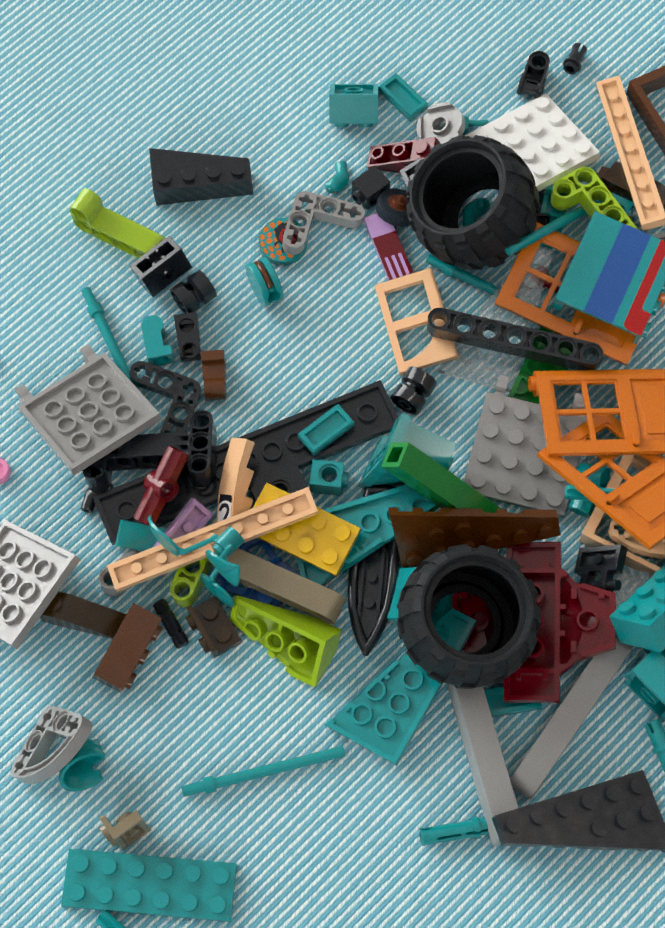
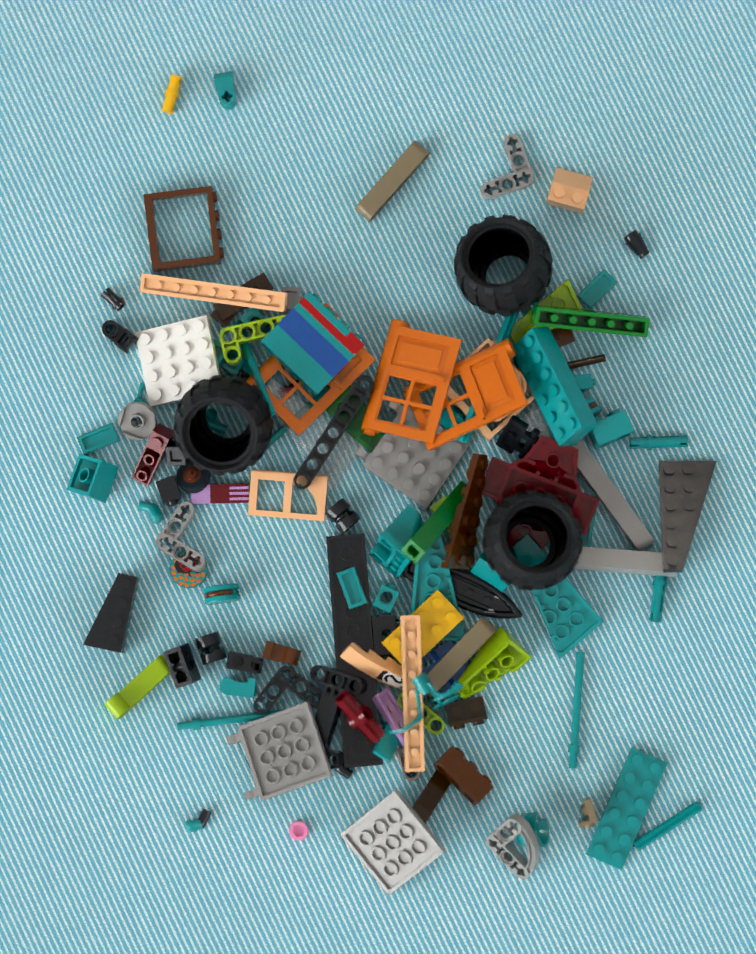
camera: 70 degrees left, 15 degrees up
(171, 623) = (454, 740): black axle -> none

